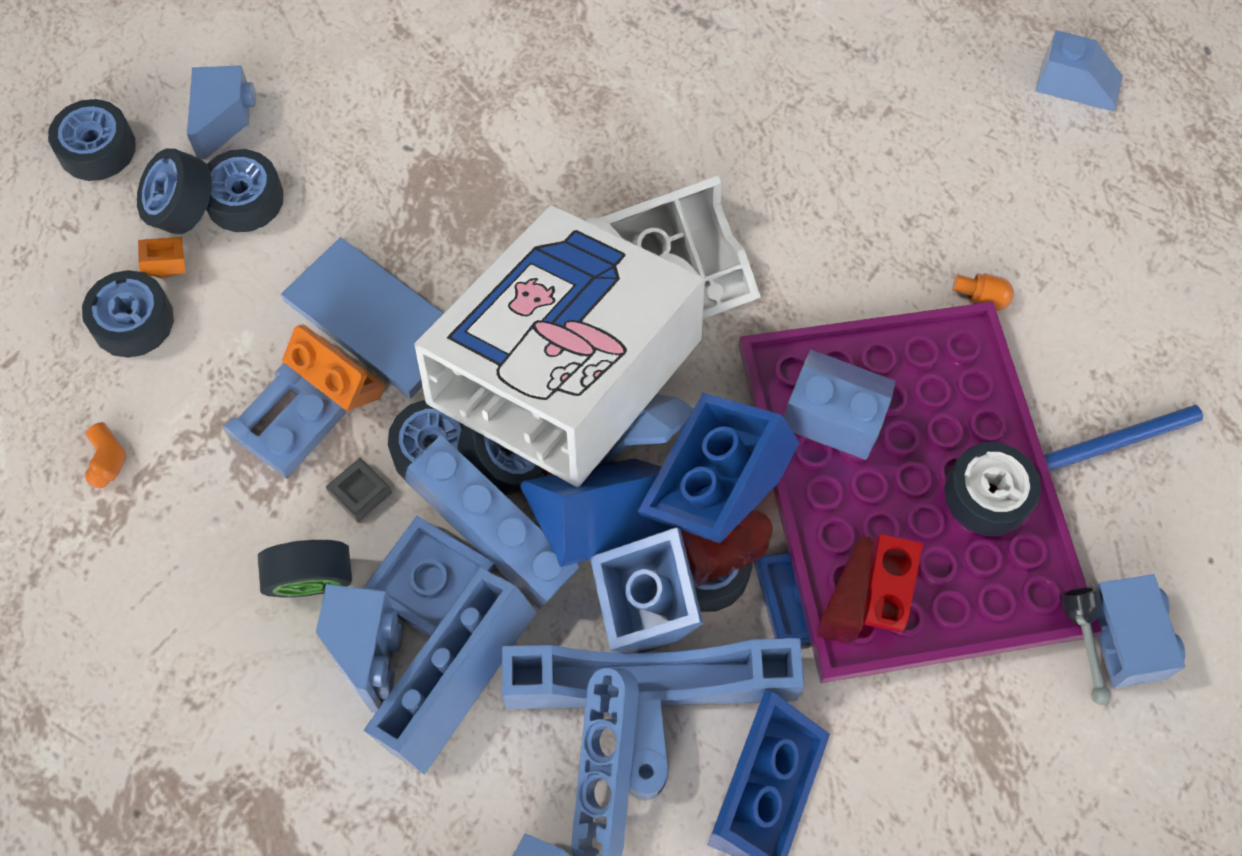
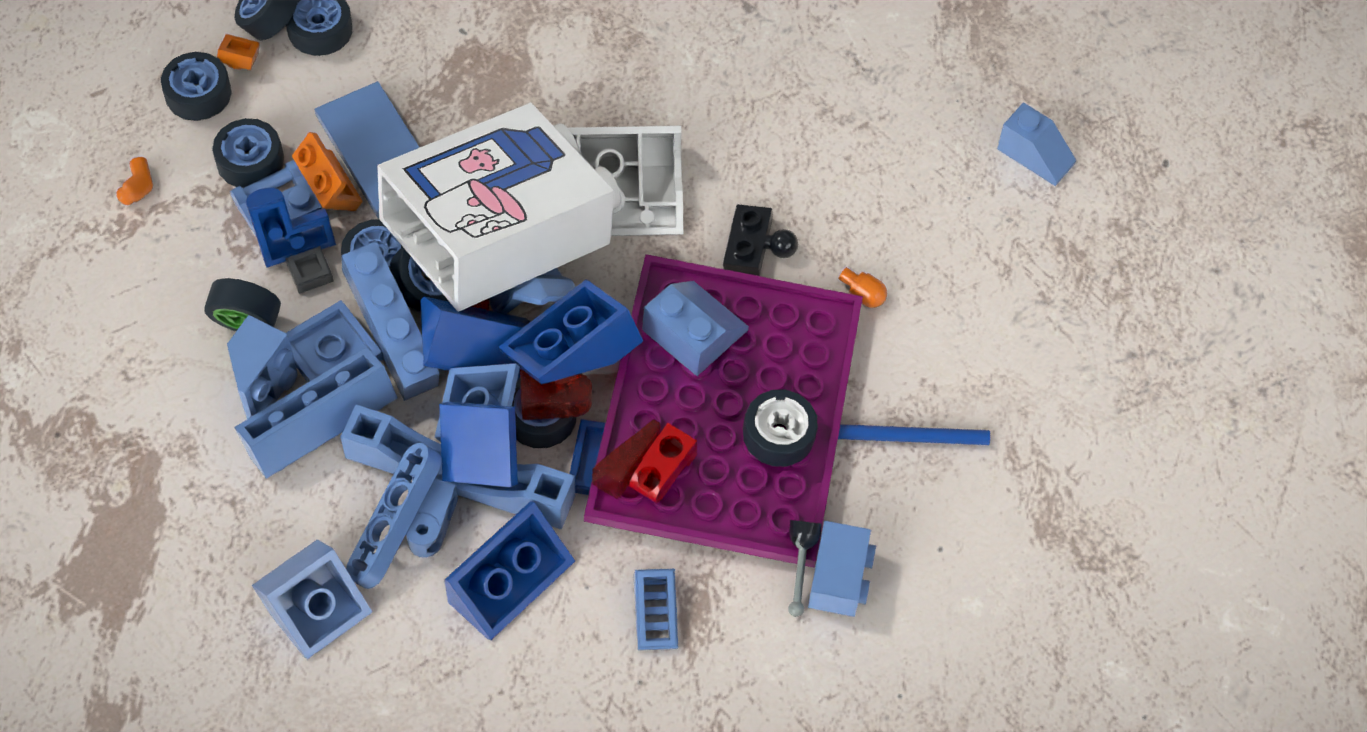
camera: 20 degrees right, 5 degrees down
(209, 357) = (242, 136): none -> wheel
(313, 460) = (281, 236): none -> blue brick
(676, 643) = (478, 444): none -> tile
(838, 279) = (751, 238): none -> black plate
(965, 751) = (655, 577): none -> medium blue slope

